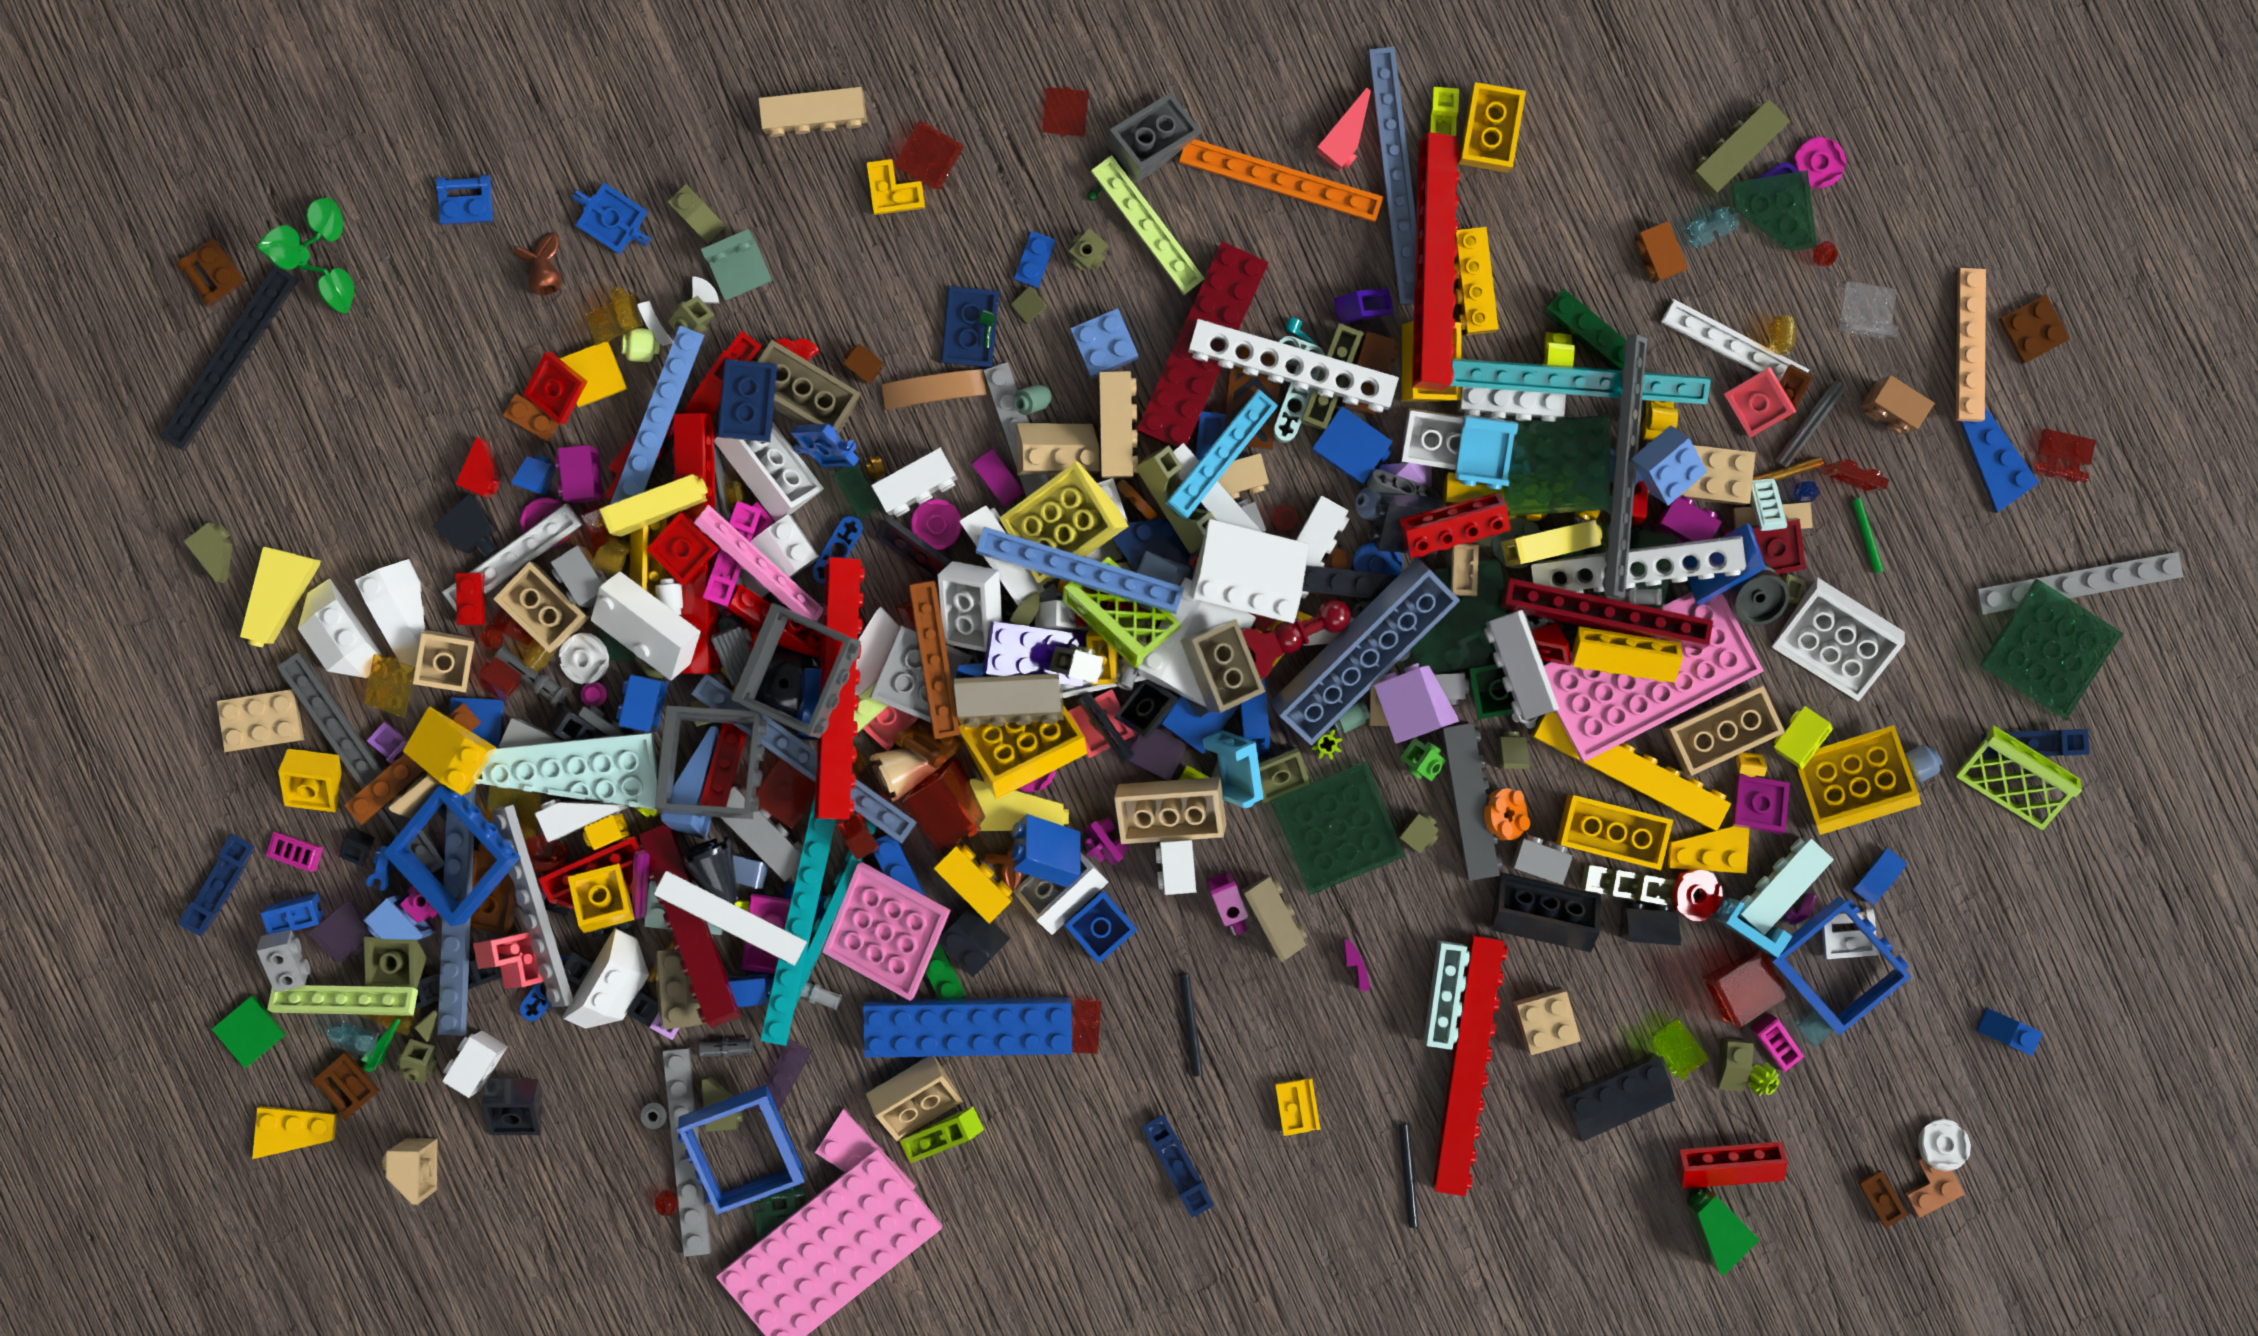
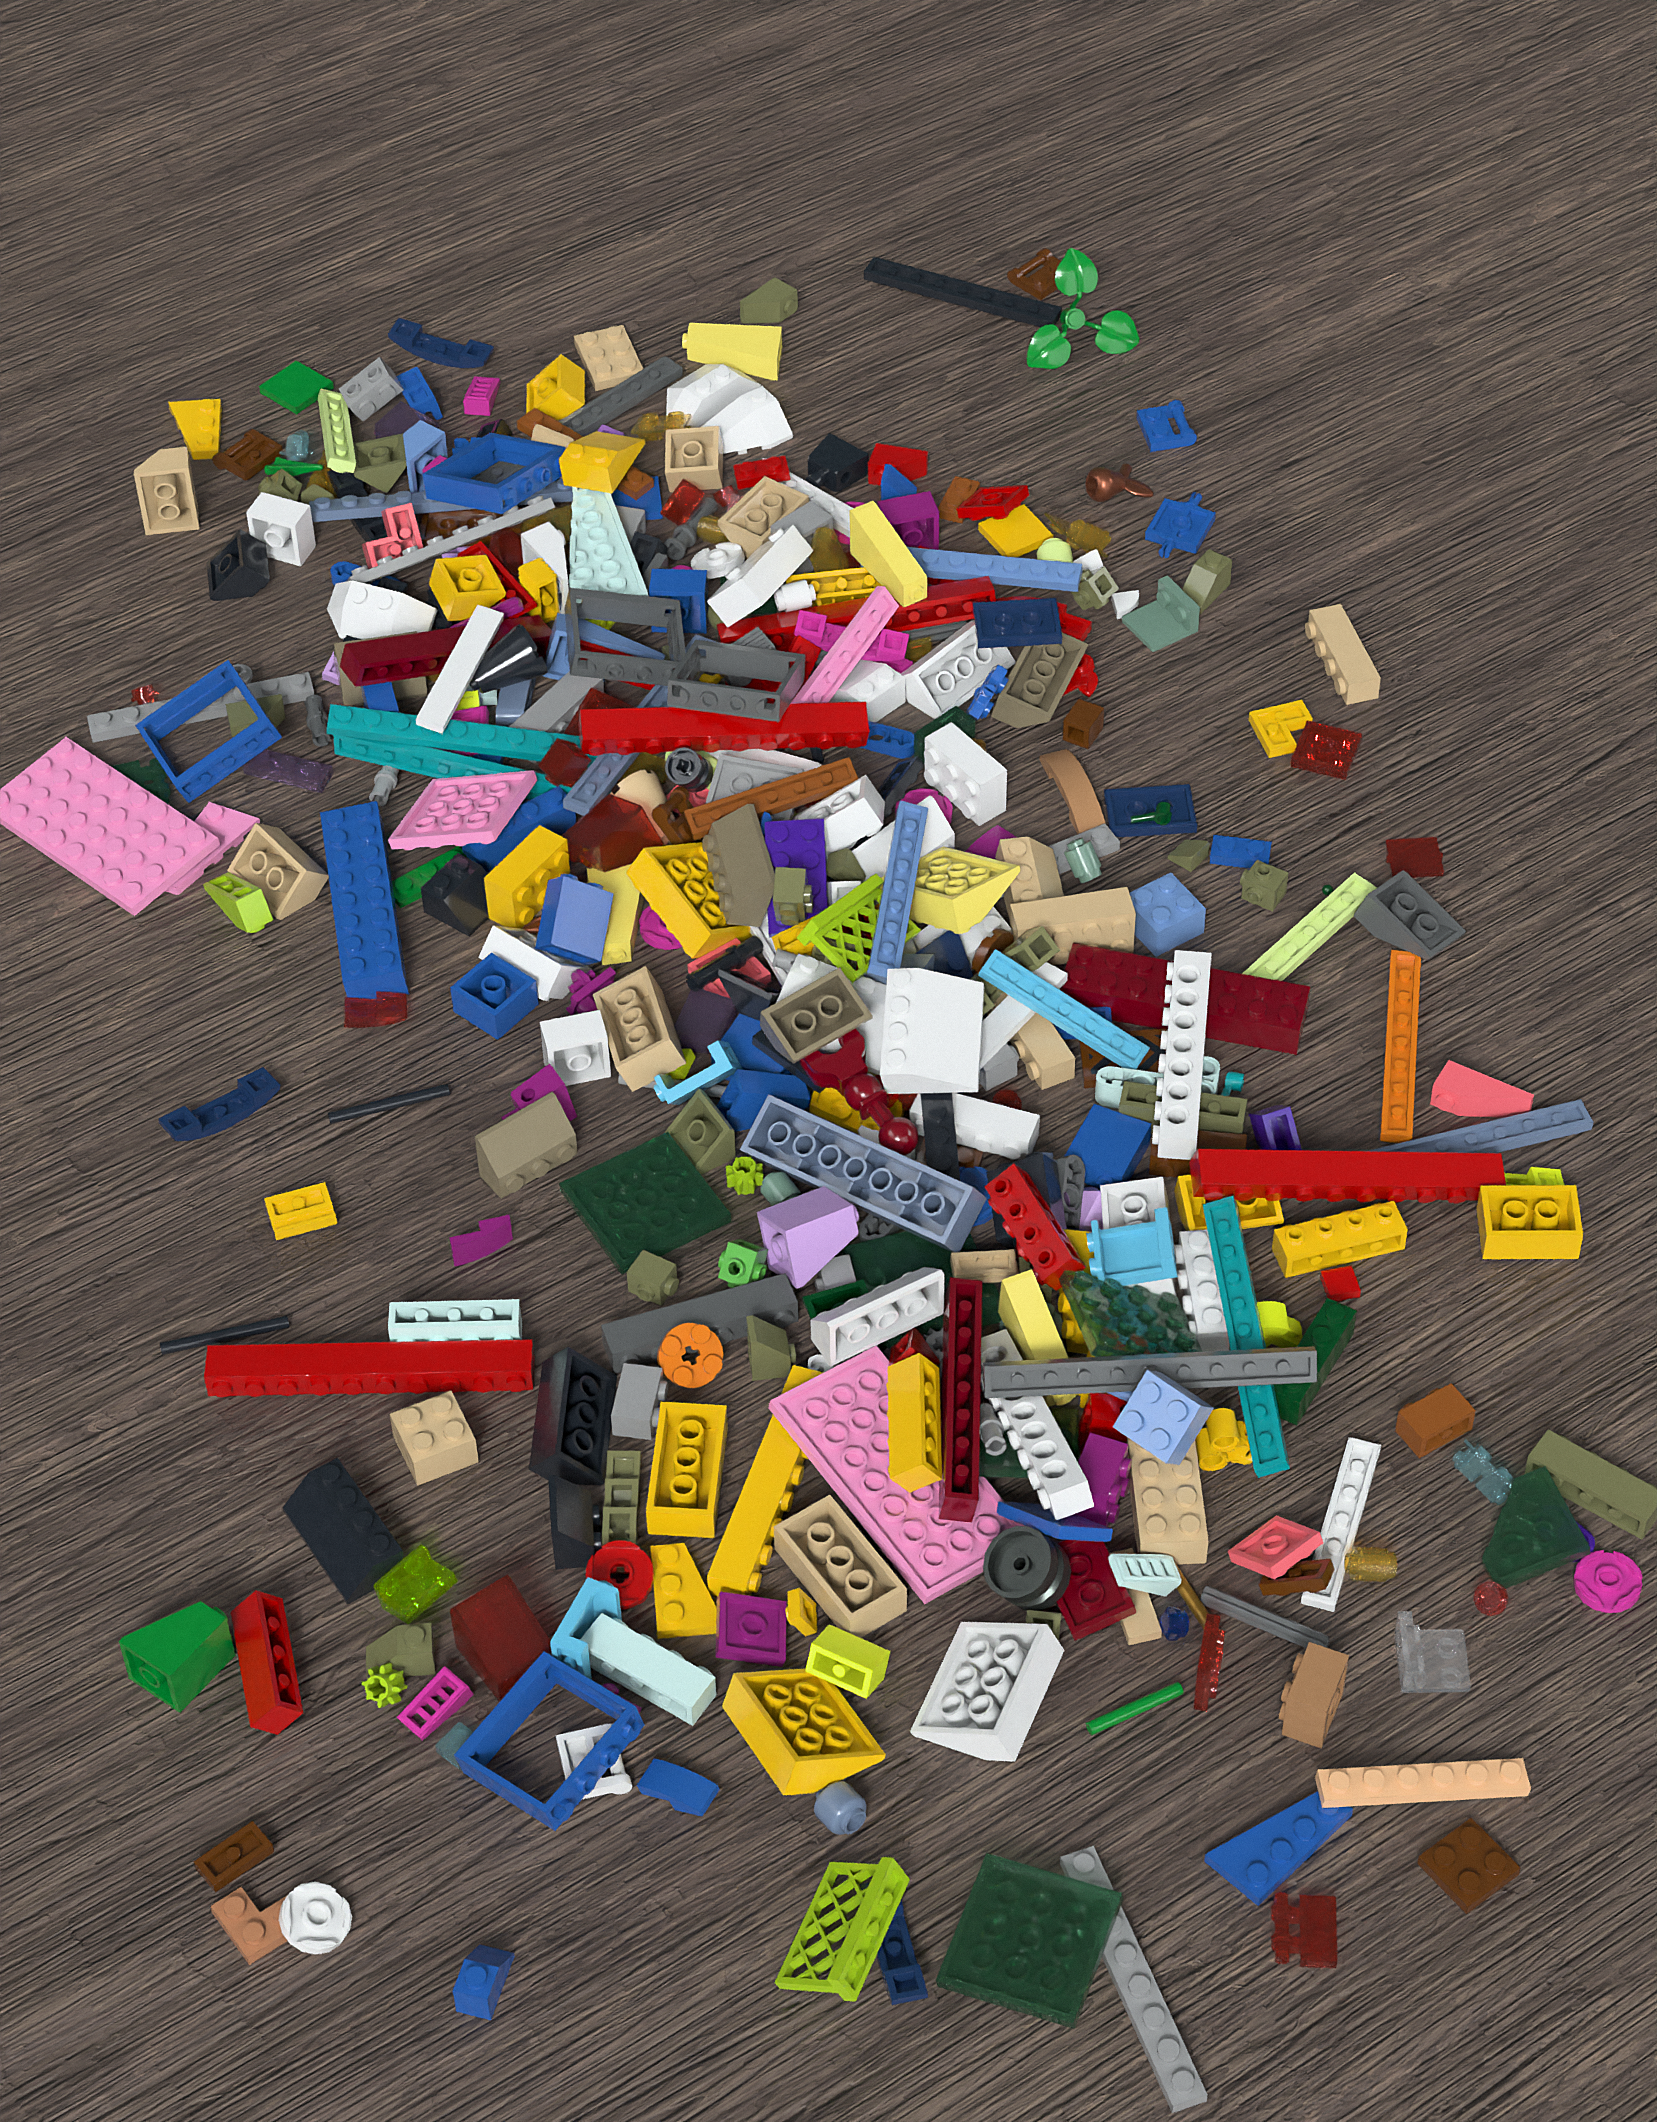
camera: 80 degrees right, 40 degrees down
(682, 548) = (844, 592): red plate -> none
(880, 726) = (689, 769): none -> black wheel
(1513, 291) = (1340, 1283): none -> red tile

